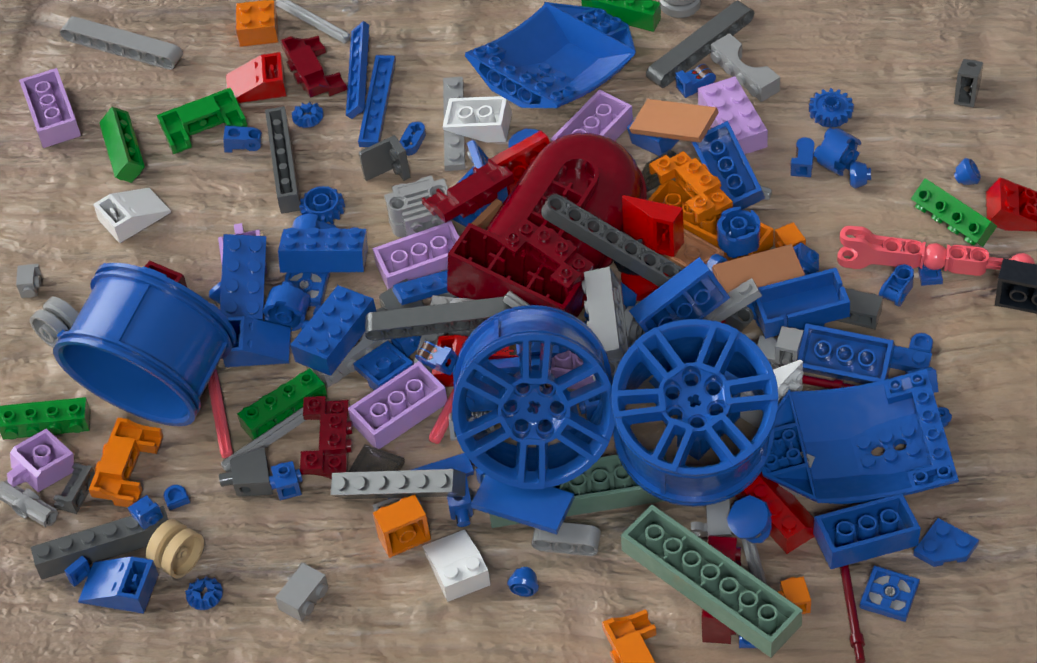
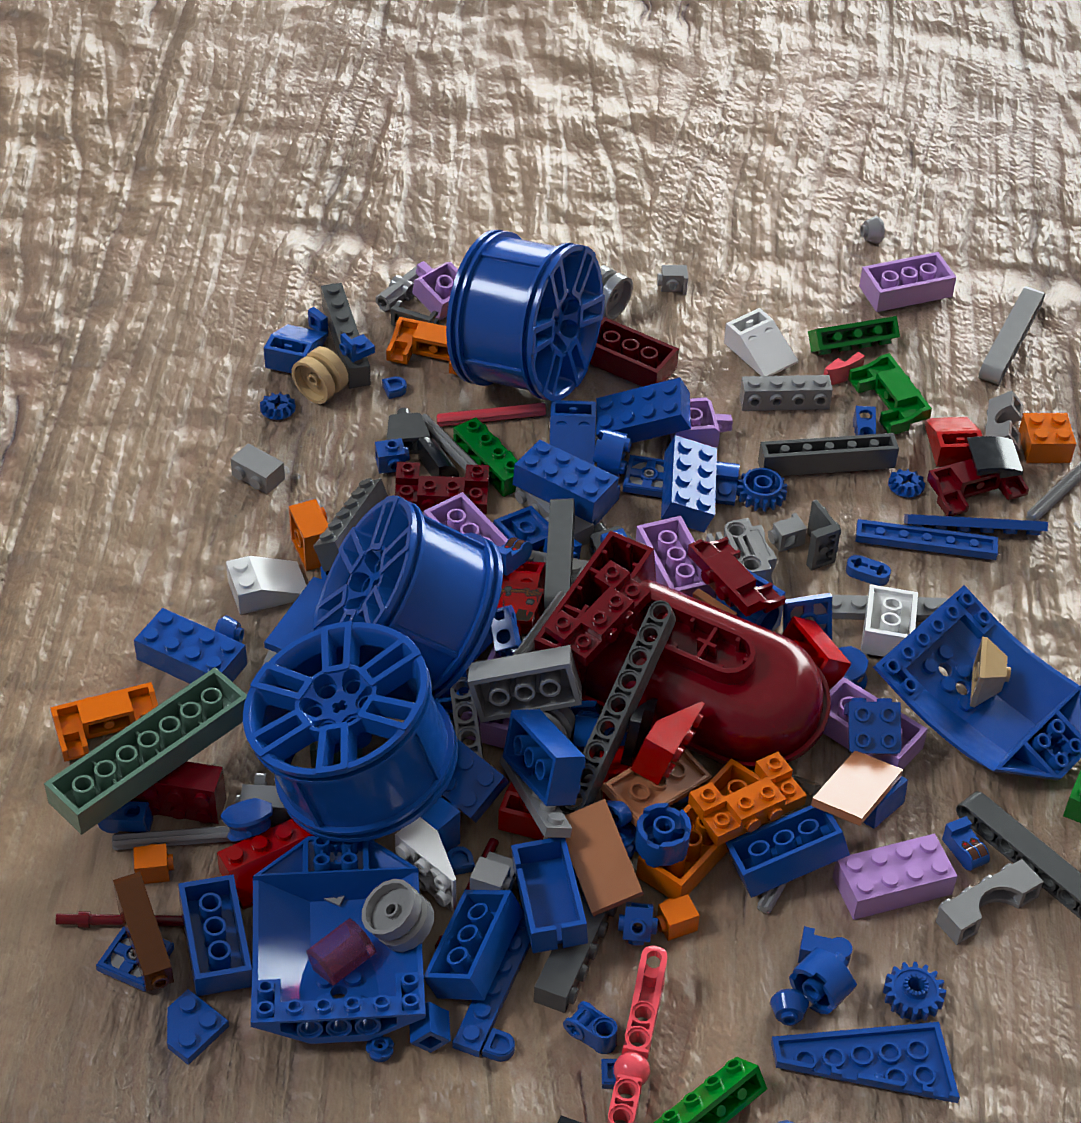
camera: 85 degrees right, 5 degrees down
(165, 153) = (840, 370): none -> coral slope
(198, 192) = (785, 392): none -> light grey brick
(225, 47) = (1002, 414): none -> light grey arch
(290, 446) = (435, 459): none -> black brick
(296, 45) = (994, 455): none -> black slope
(374, 186) = (788, 533): none -> light grey brick
(546, 53) = (988, 672): none -> tan slope
(551, 607) = (188, 648): none -> blue brick
(606, 111) = (874, 726): none -> blue bracket
(829, 401) = (398, 915): none -> light grey wheel
(871, 439) = (340, 952): none -> clear pink brick
(880, 574) = (143, 931): none -> reddish brown slope
(888, 127) = (888, 1057): none -> blue wing

